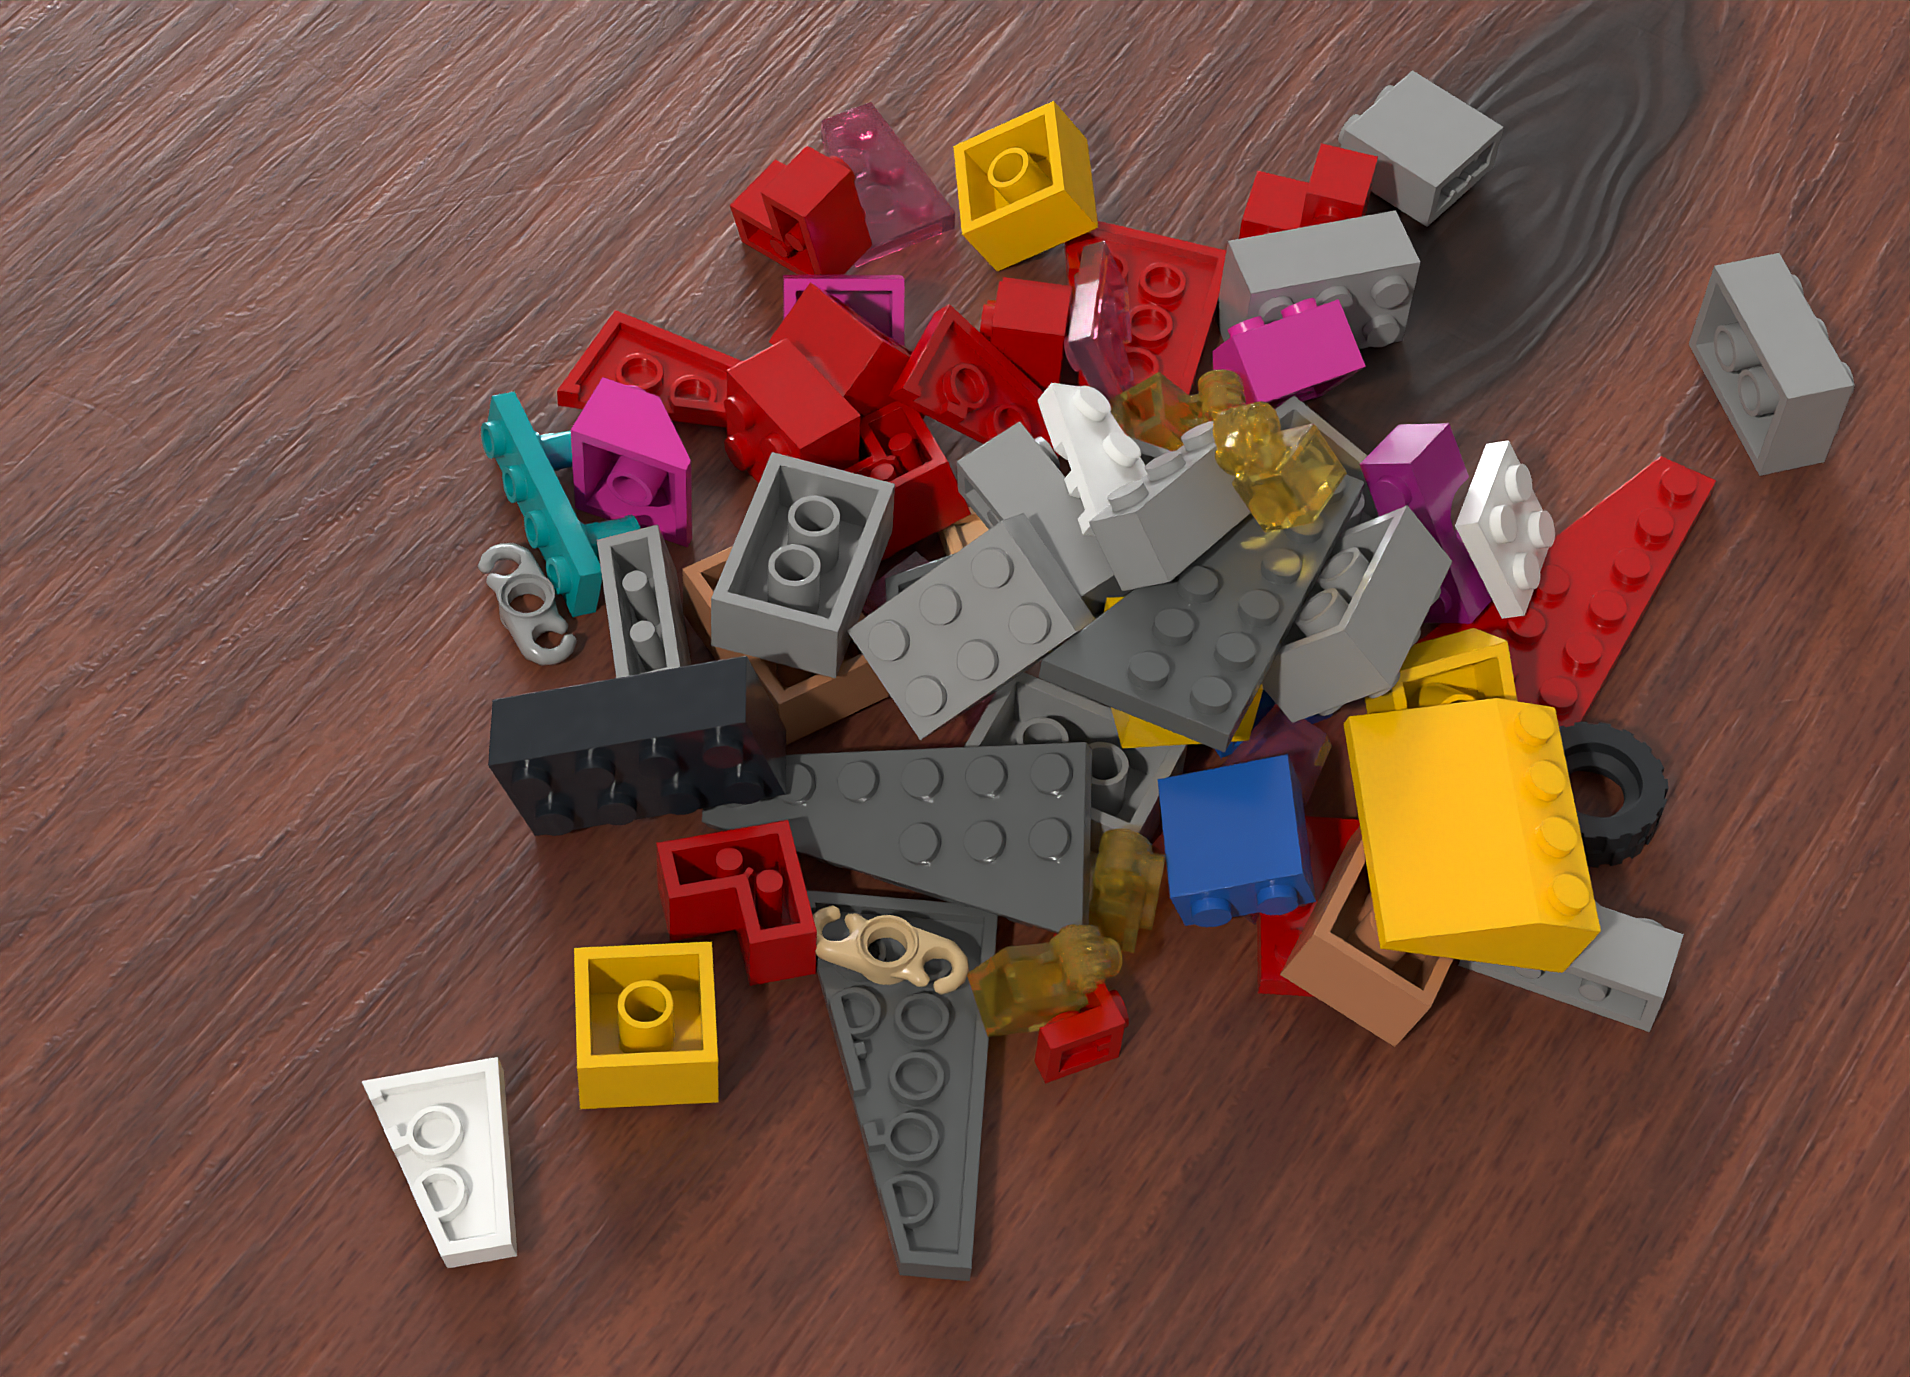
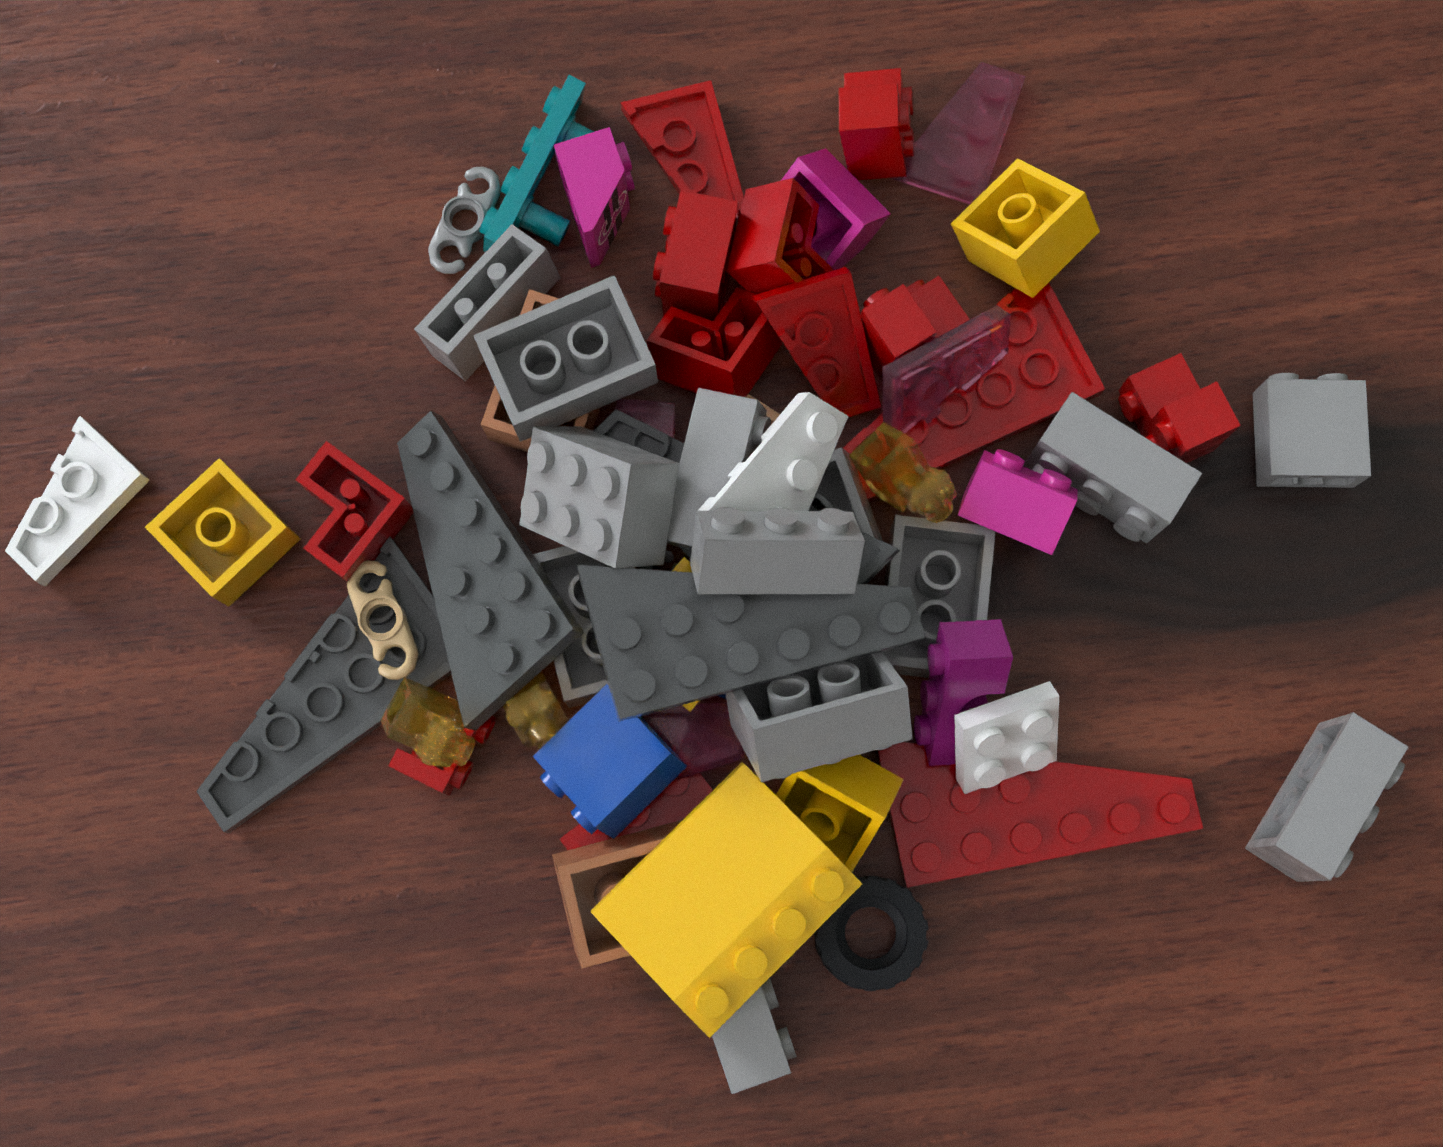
camera: 55 degrees right, 25 degrees up
(638, 747) = (374, 378): black brick -> none
(1278, 473) = (849, 591): clear yellow brick -> none

